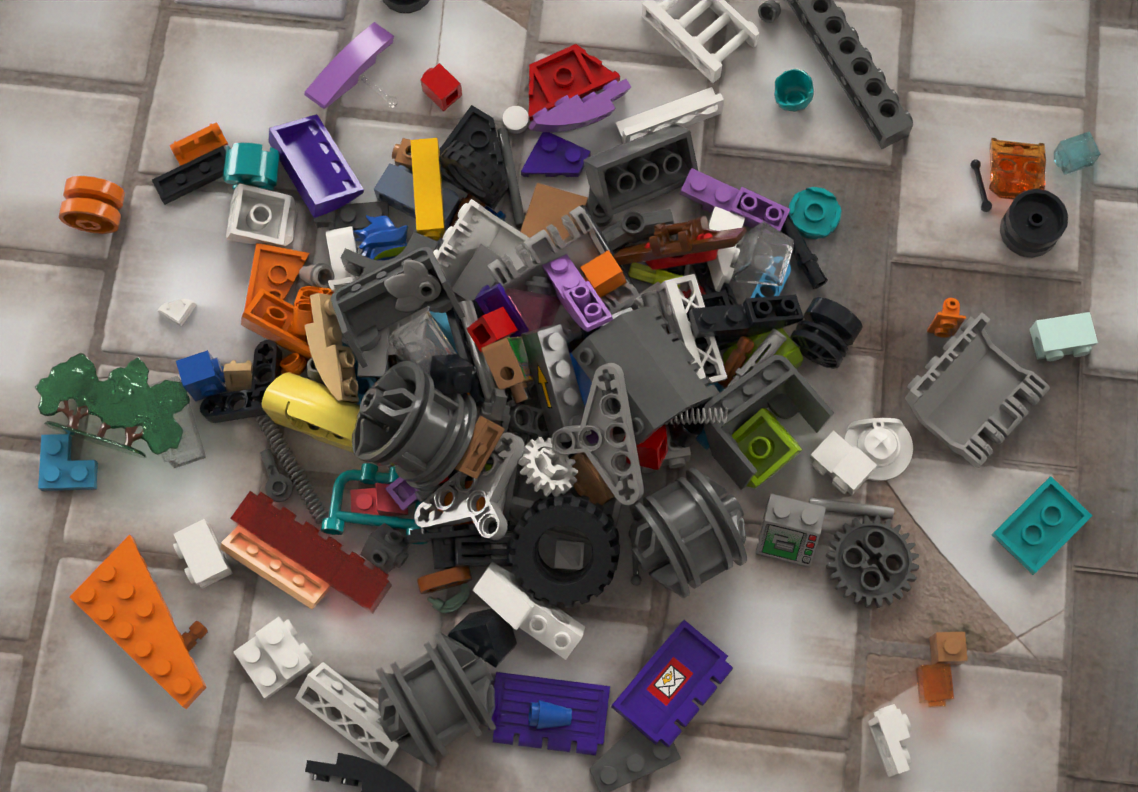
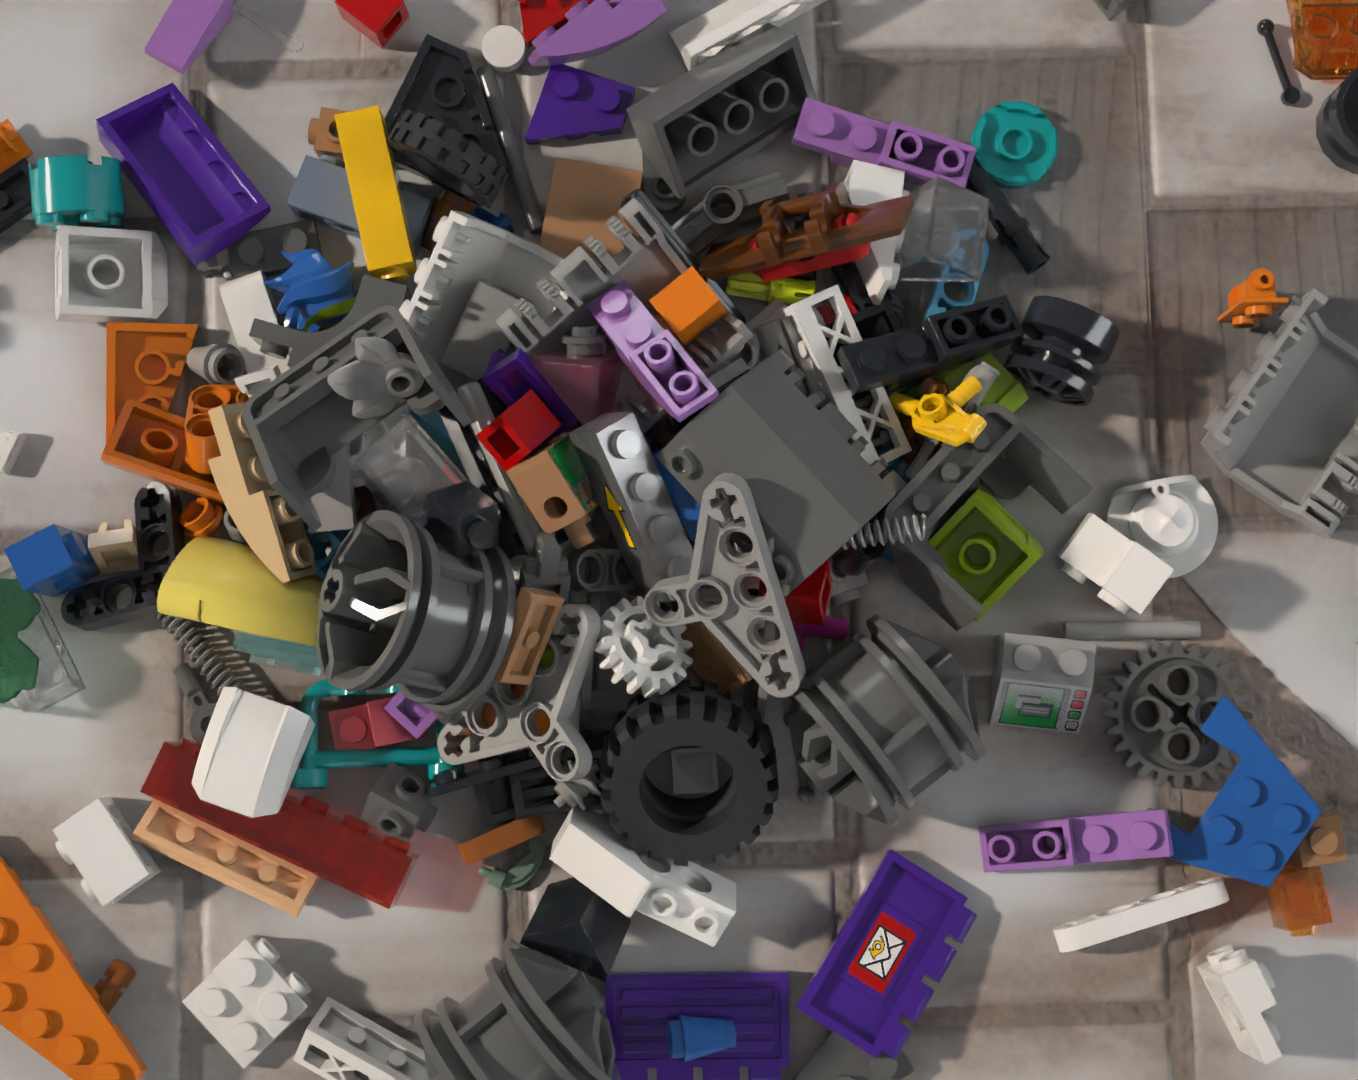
camera: 10 degrees left, 10 degrees up
(302, 501) = (250, 753): none -> white slope
(321, 446) = (267, 652): none -> clear light blue plate
(494, 548) = (574, 791): none -> light grey wheel
(656, 478) = (833, 628): none -> dark pink arm
(748, 358) = (941, 415): none -> yellow piece
(799, 629) = (1076, 840): none -> medium lavender slope
(835, 680) = (1140, 914): none -> white beam
(911, 625) = (1256, 813): none -> blue wing

